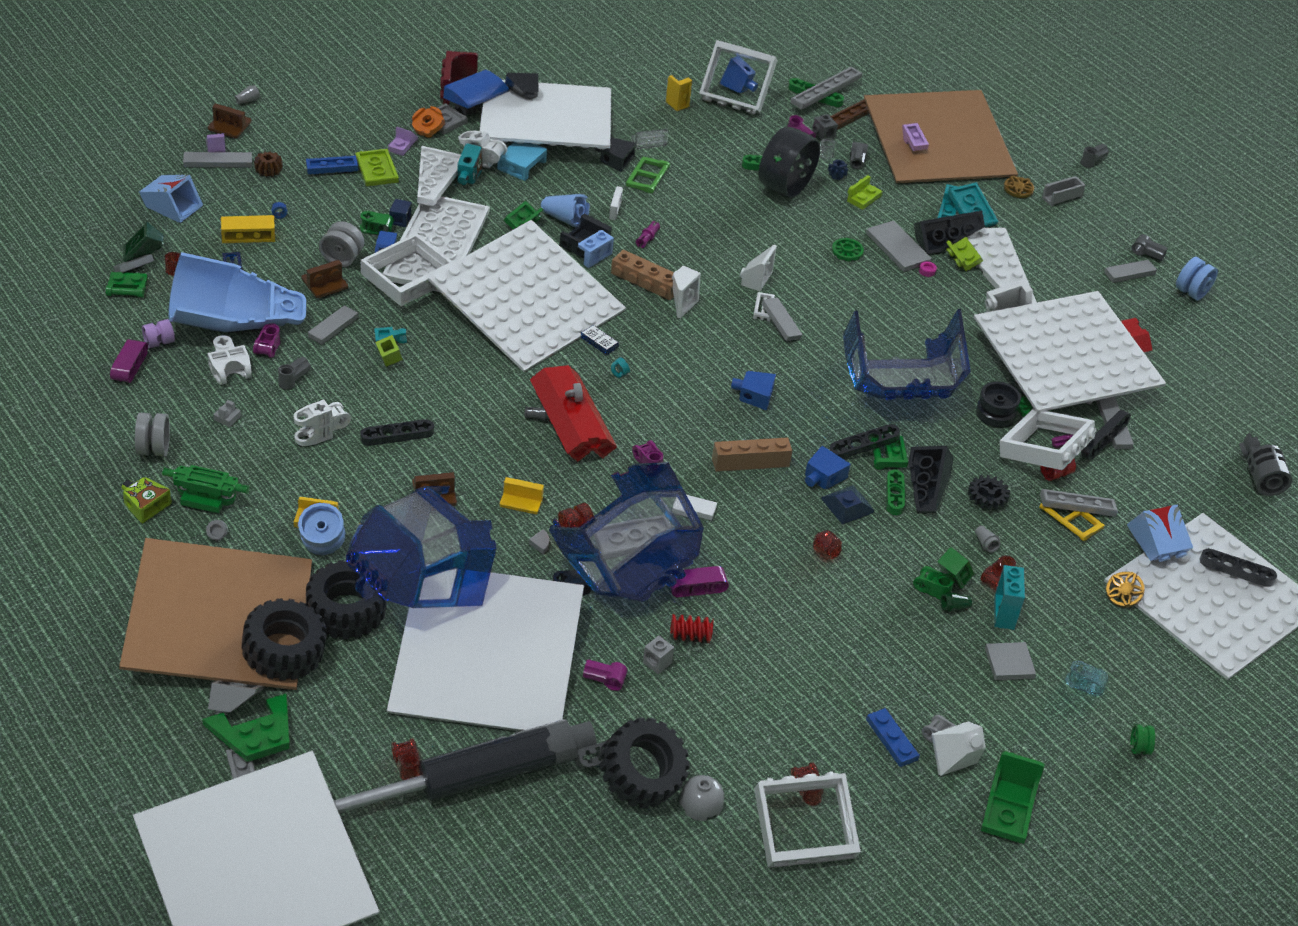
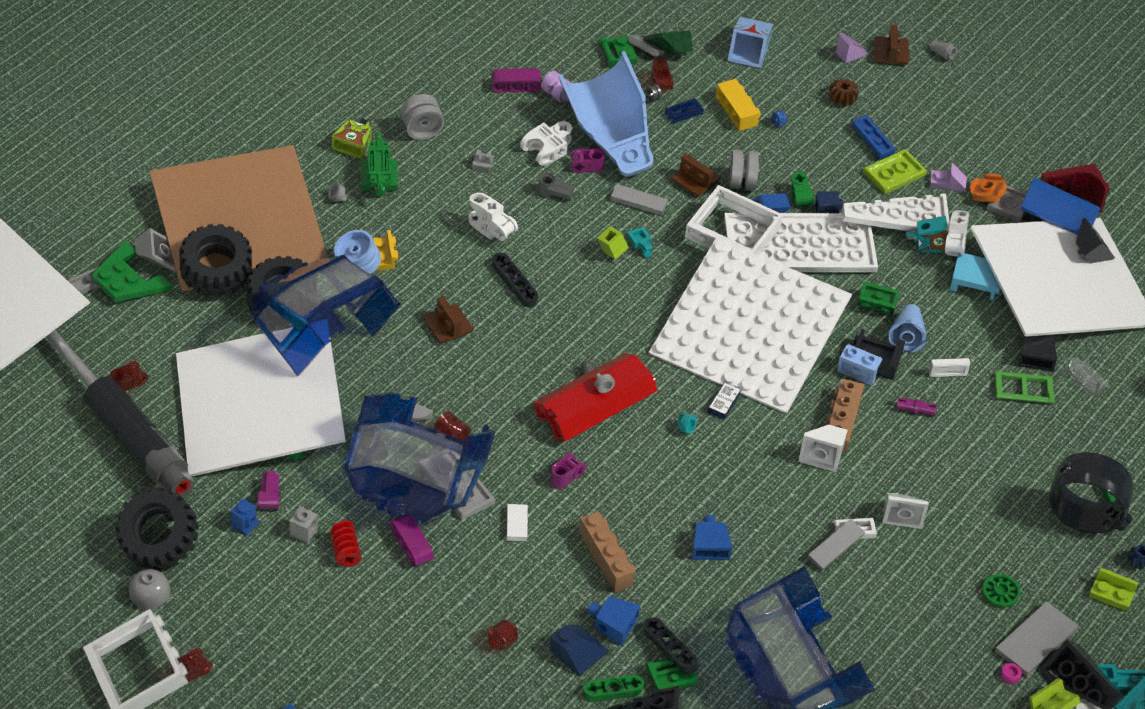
camera: 75 degrees right, 5 degrees up
(217, 159) = (832, 57): light grey tile -> none
(522, 495) = (468, 387): yellow panel -> none
(636, 694) = (244, 517): none -> blue brick

